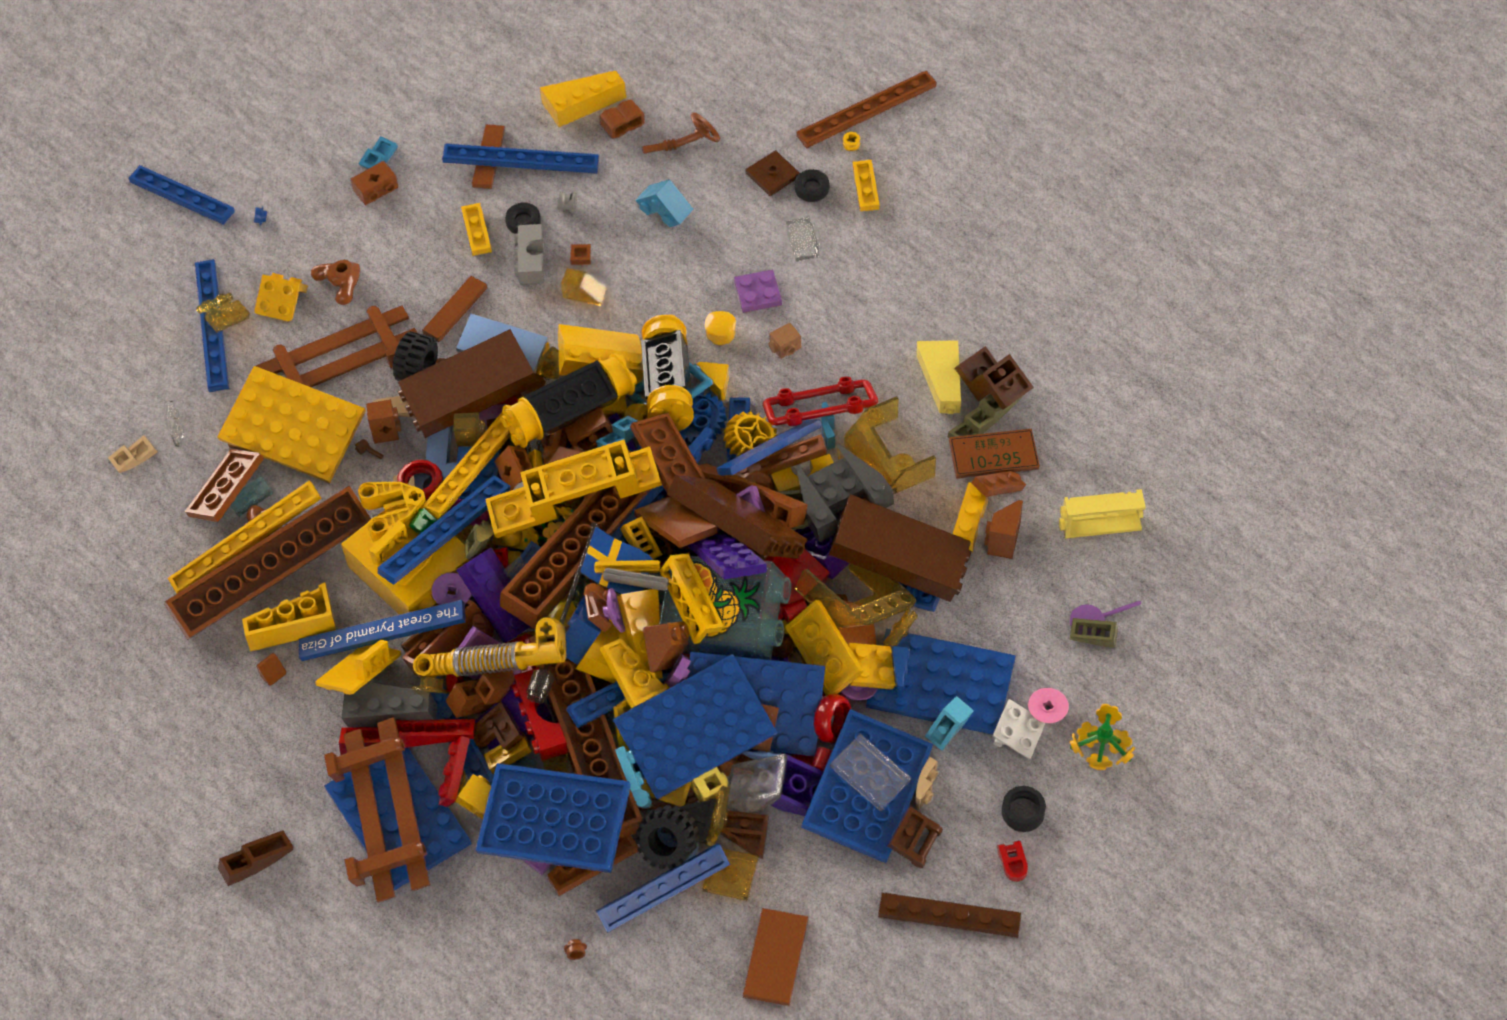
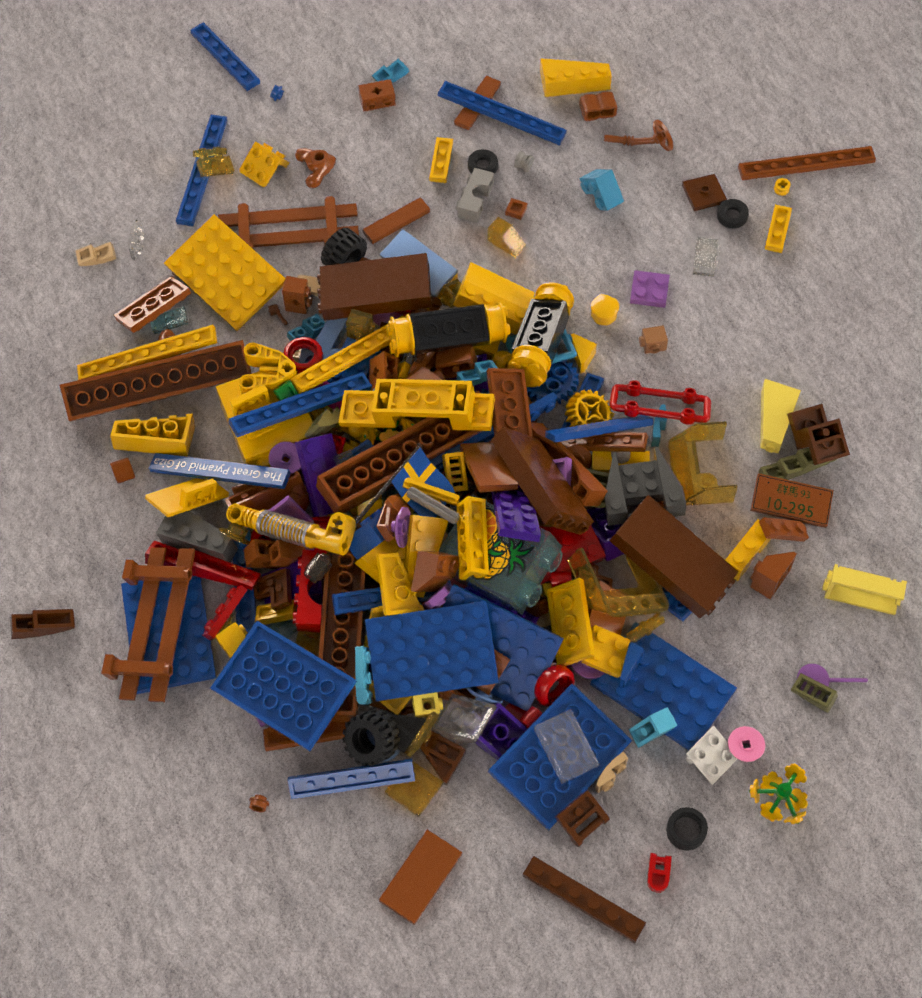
camera: 20 degrees right, 5 degrees up
(410, 450) = (310, 328): none -> dark azure slope

